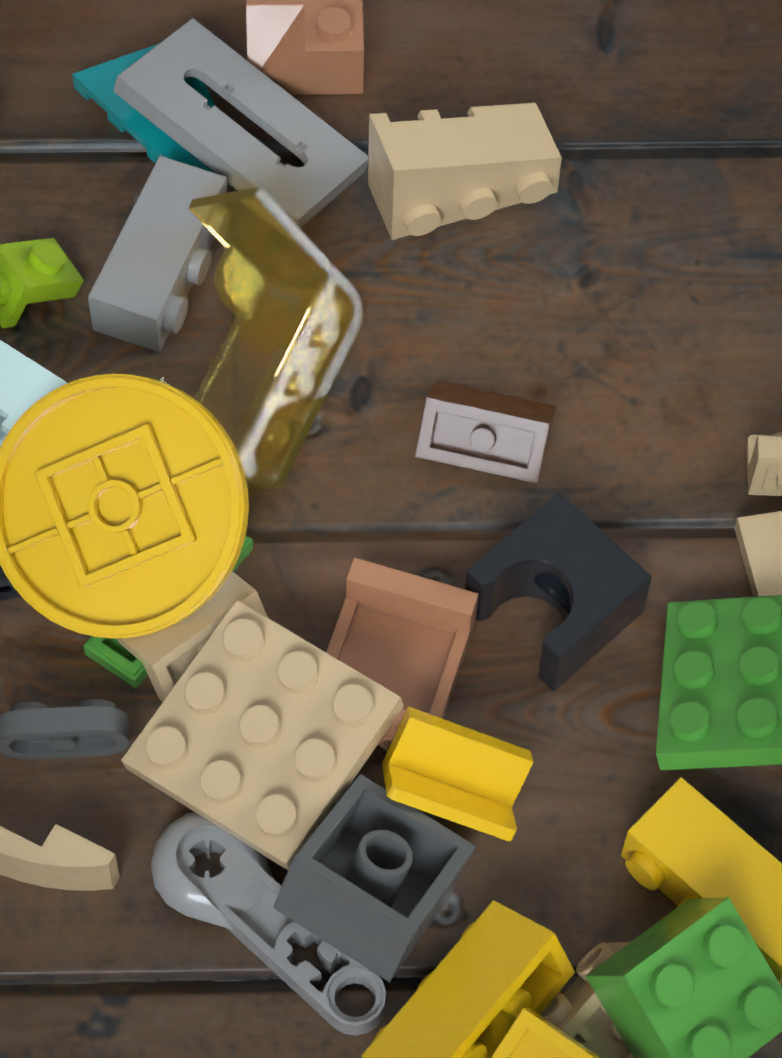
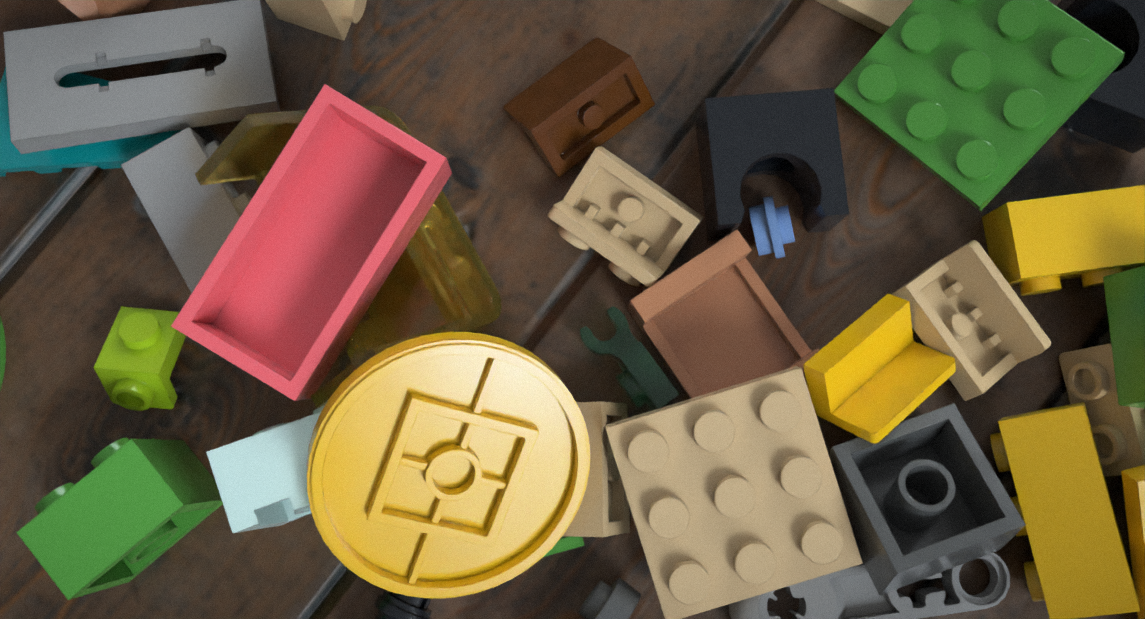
camera: 50 degrees left, 20 degrees up
(209, 303) = (314, 245): none -> coral piece
(310, 612) = (640, 375): none -> clear green plate
(421, 517) = (624, 219): none -> tan bracket
(509, 632) = (771, 227): none -> medium blue plate
(563, 833) = (974, 316): none -> tan bracket

